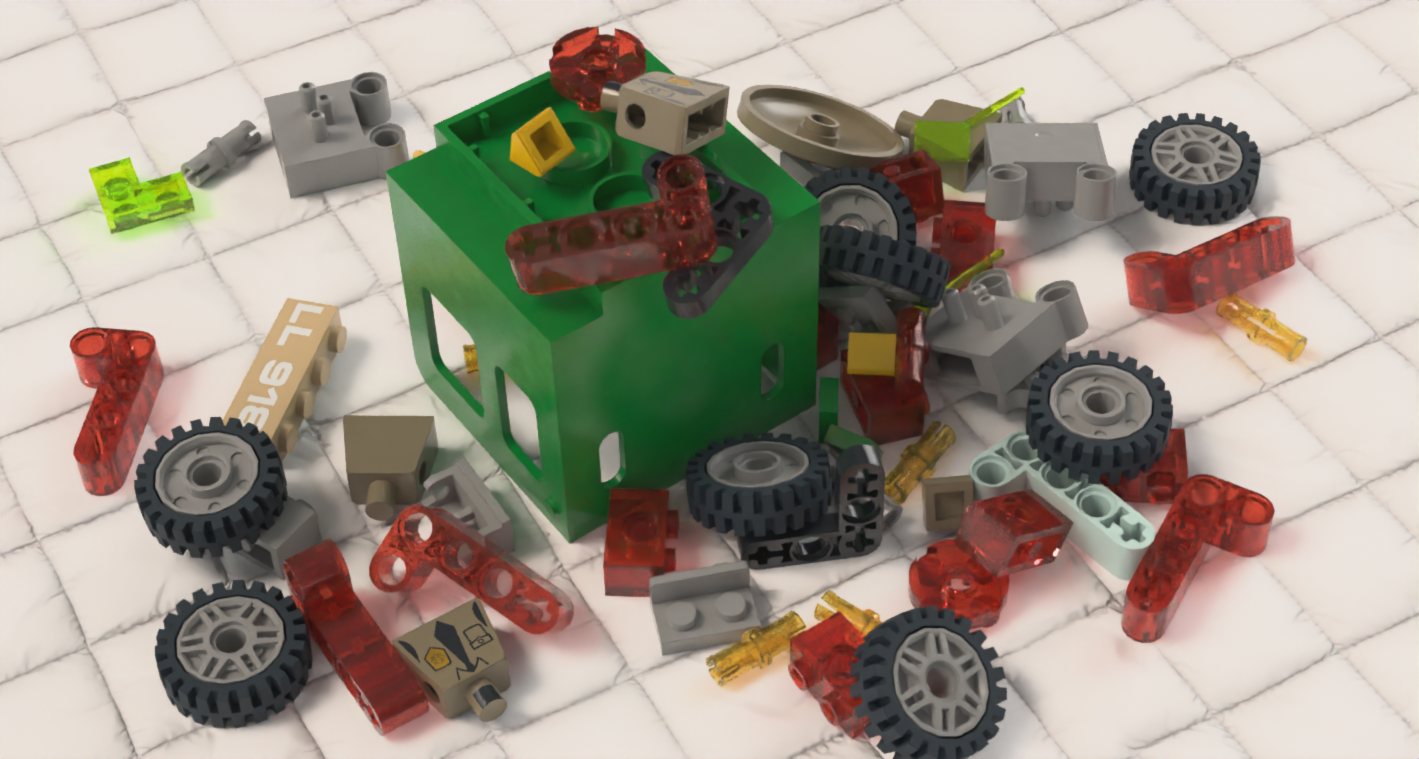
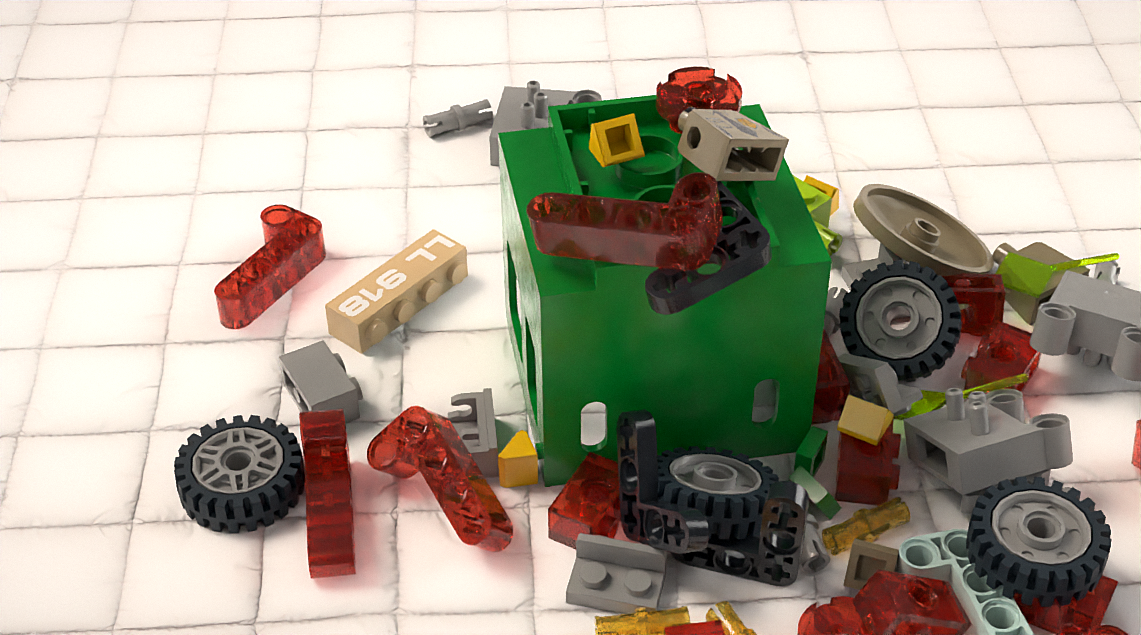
camera: 25 degrees right, 5 degrees down
(134, 204) = (373, 130): clear neon green plate -> none
(210, 487) = (288, 342): wheel -> none
(388, 460) = (438, 369): dark tan torso -> none
(458, 662) = (397, 543): dark tan torso -> none
(536, 526) = (518, 462): none -> yellow slope
(707, 535) = (641, 513): none -> black beam
(887, 264) = (904, 348): black wheel -> none
(911, 341) = (897, 430): clear red pin -> none

